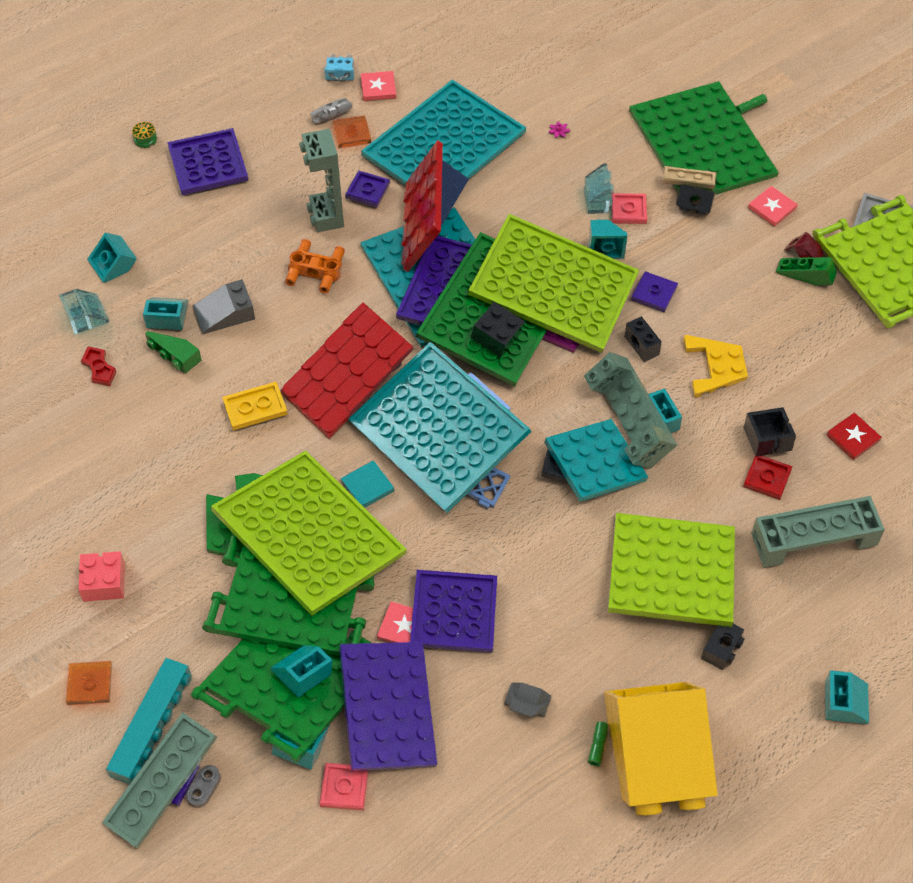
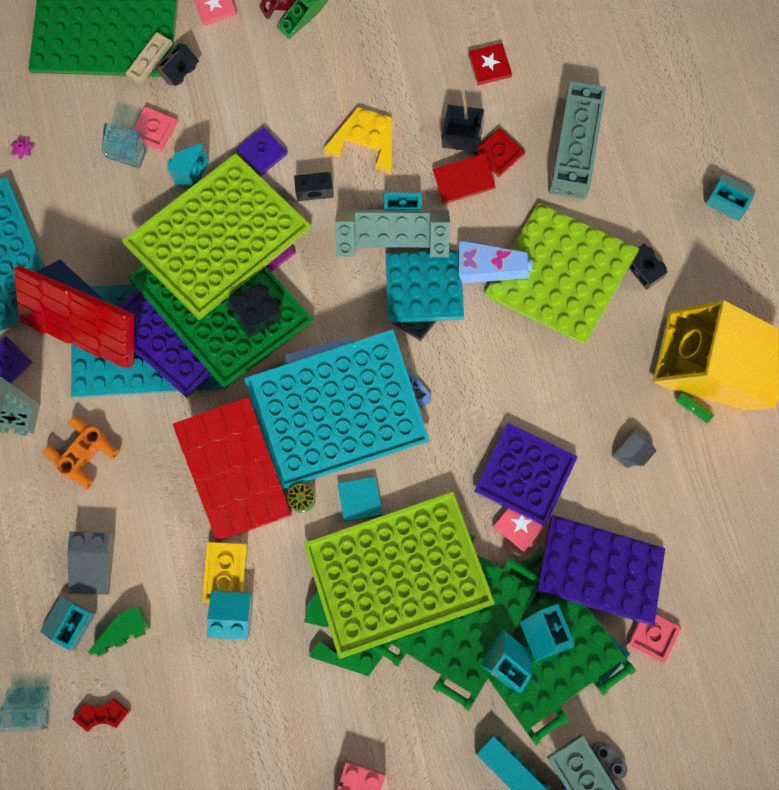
camera: 65 degrees left, 20 degrees up
(218, 419) = (229, 615): none -> teal slope
(260, 639) = (509, 662): none -> teal slope
(347, 438) = (301, 498): none -> wheel
(645, 501) = (491, 263): none -> light blue slope
(722, 454) = (464, 178): none -> red tile

